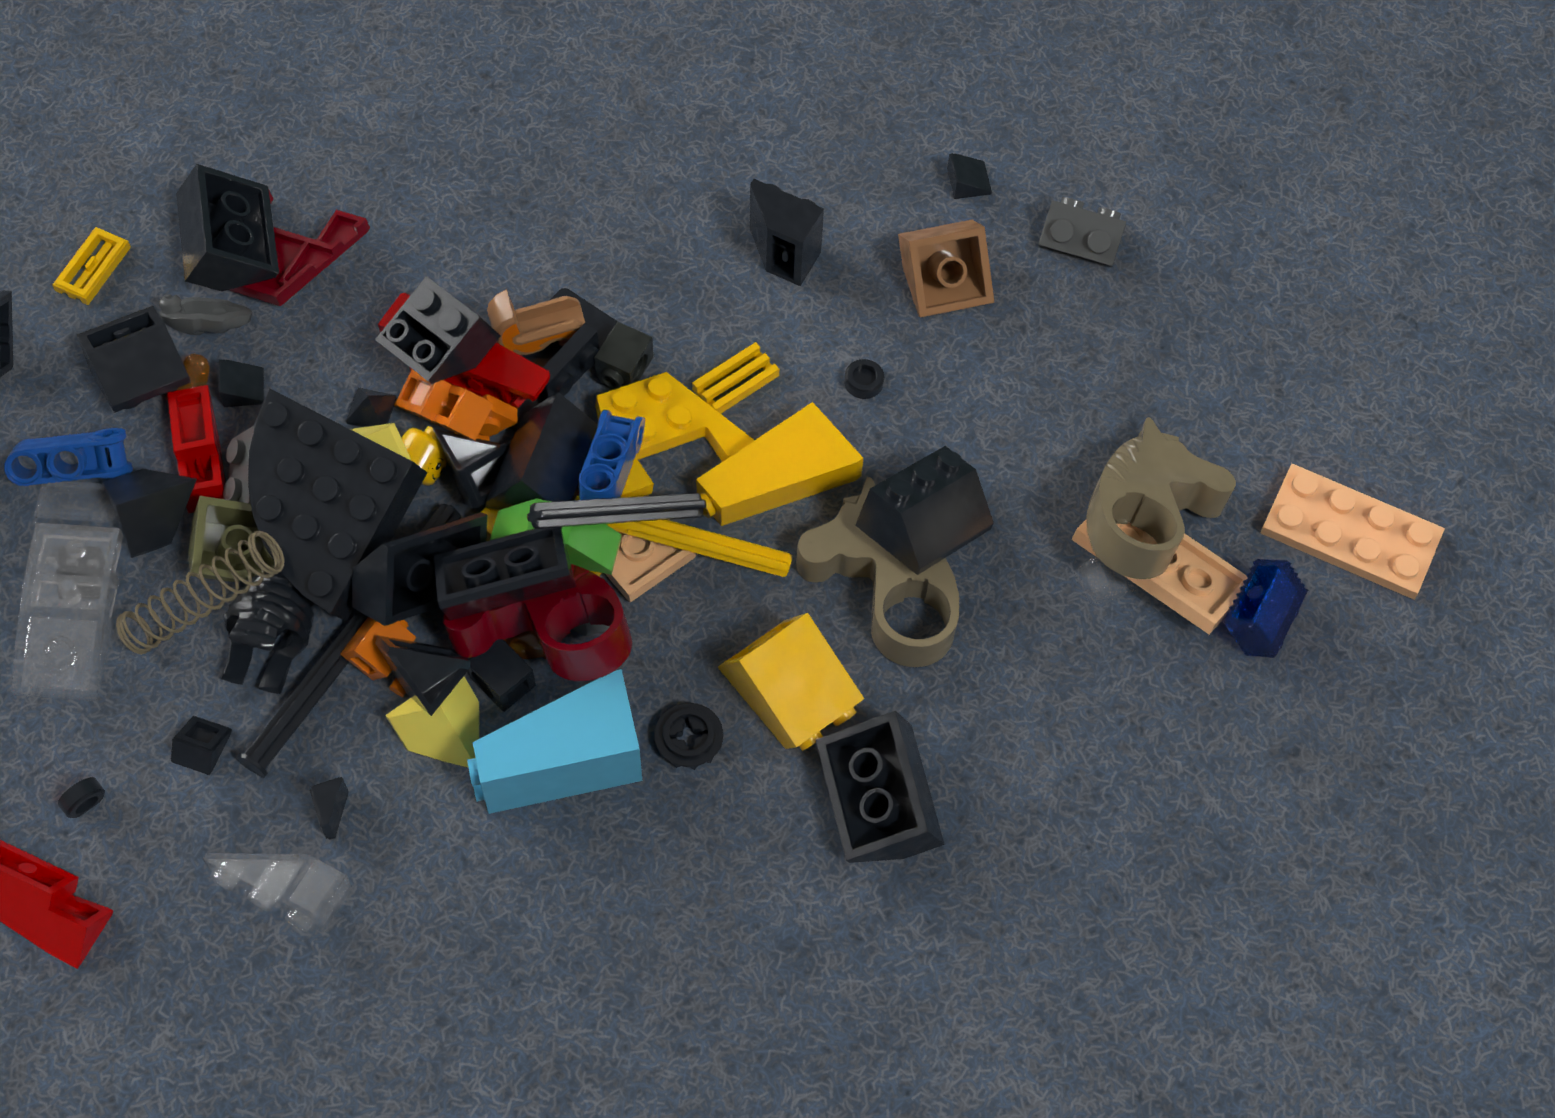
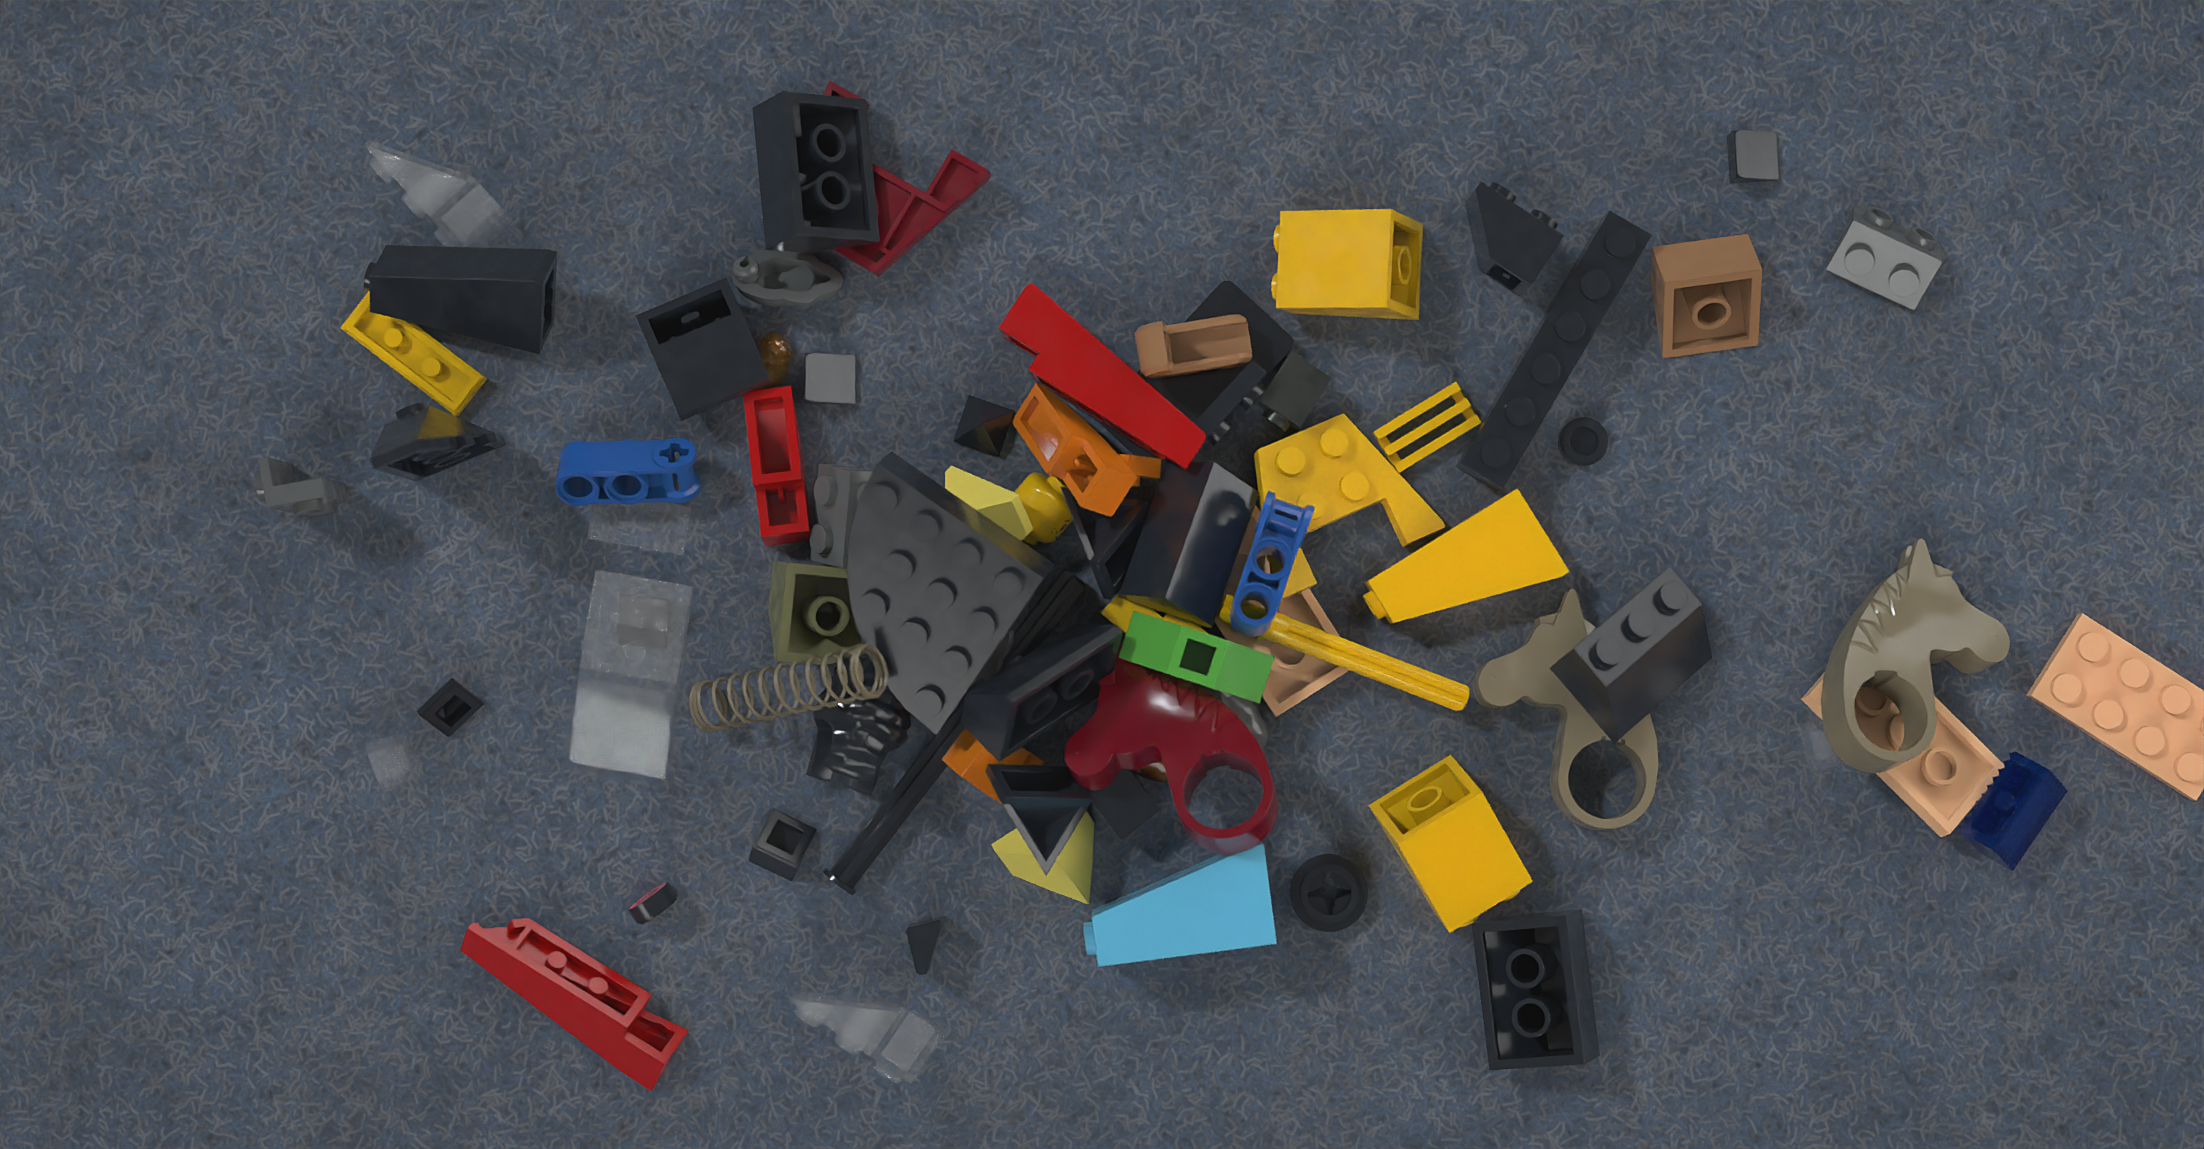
camera: 10 degrees right, 25 degrees up
(97, 268) = (659, 201): yellow tile -> none
(148, 507) = (721, 544): black slope -> none
(437, 334) = (1074, 376): black slope -> none
(502, 572) = (1139, 723): black slope -> none
(615, 510) = (1273, 642): axle -> none
(660, 263) = (1348, 263): none -> yellow slope
(829, 312) = (1553, 351): none -> black brick

